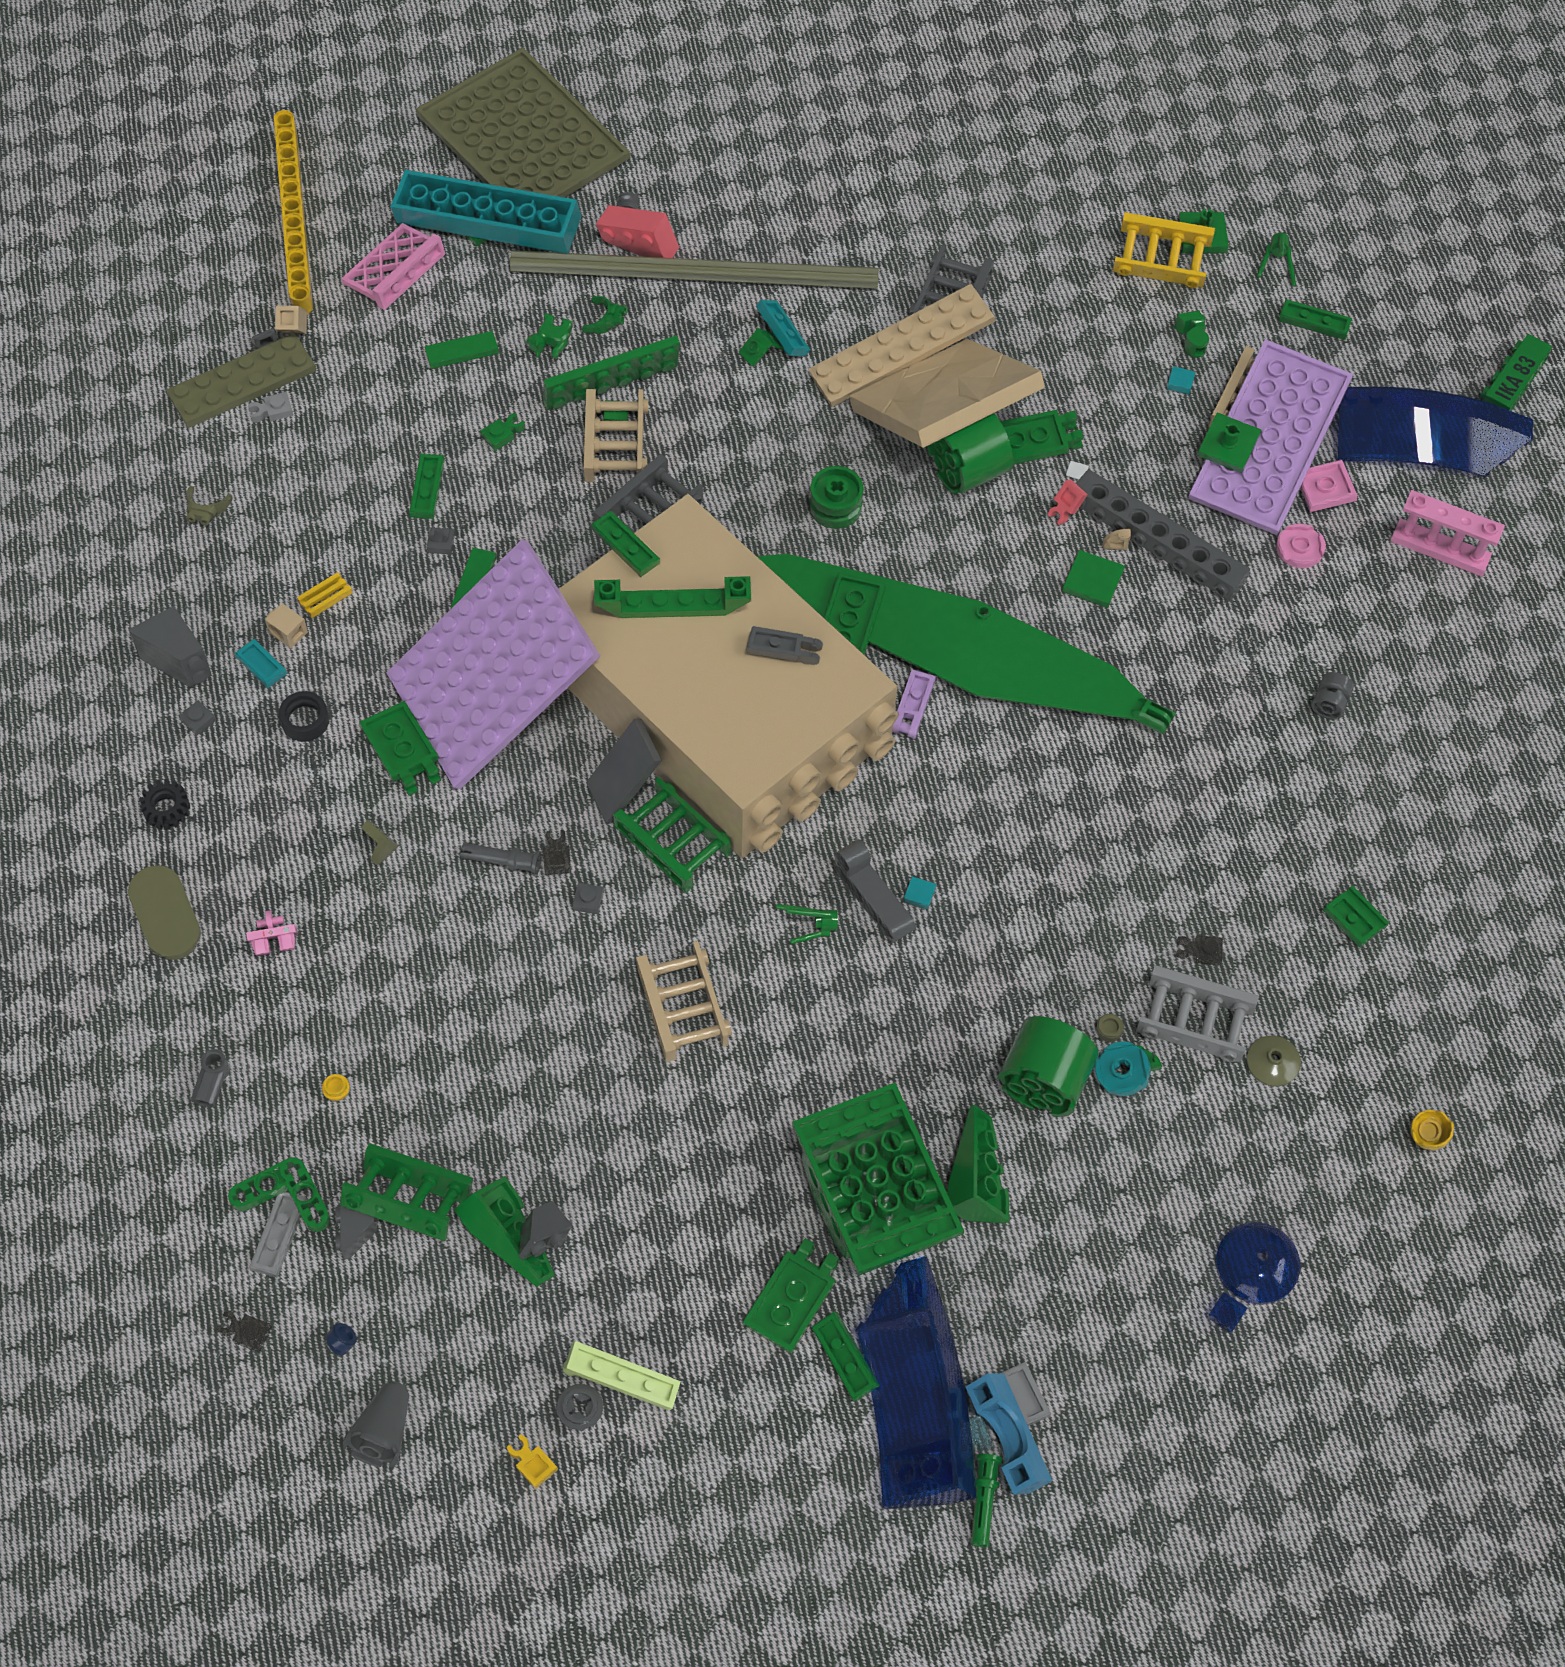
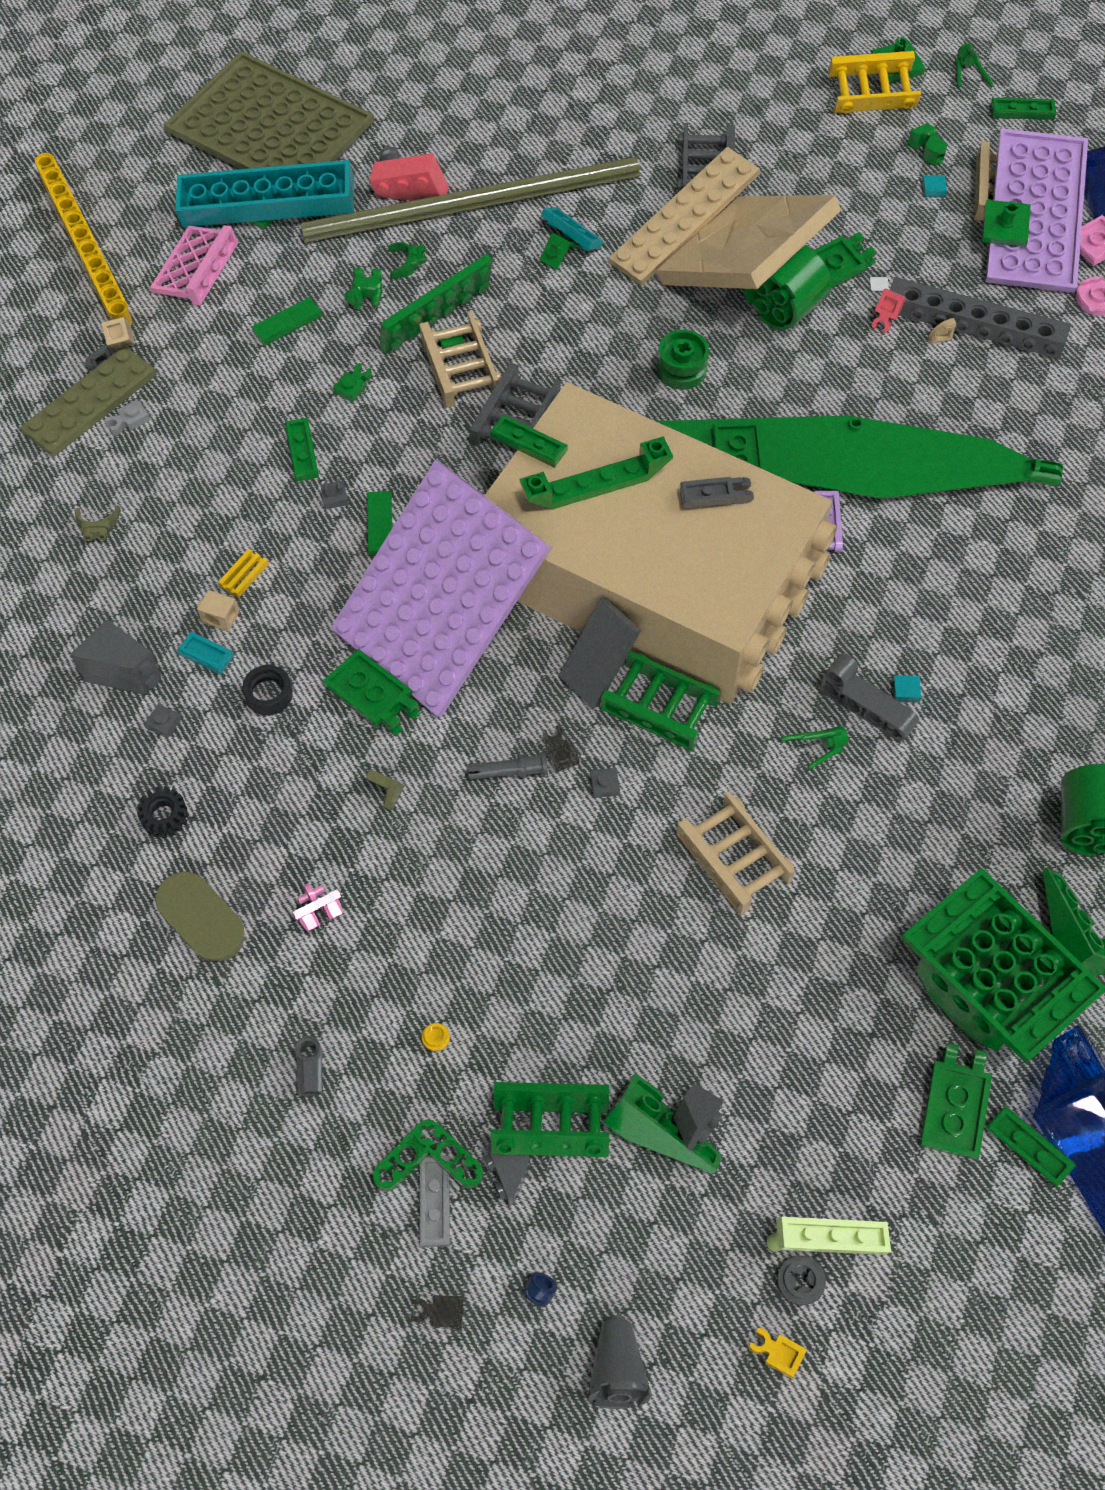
camera: 15 degrees left, 0 degrees up
(1093, 578) = (935, 370): green tile -> none

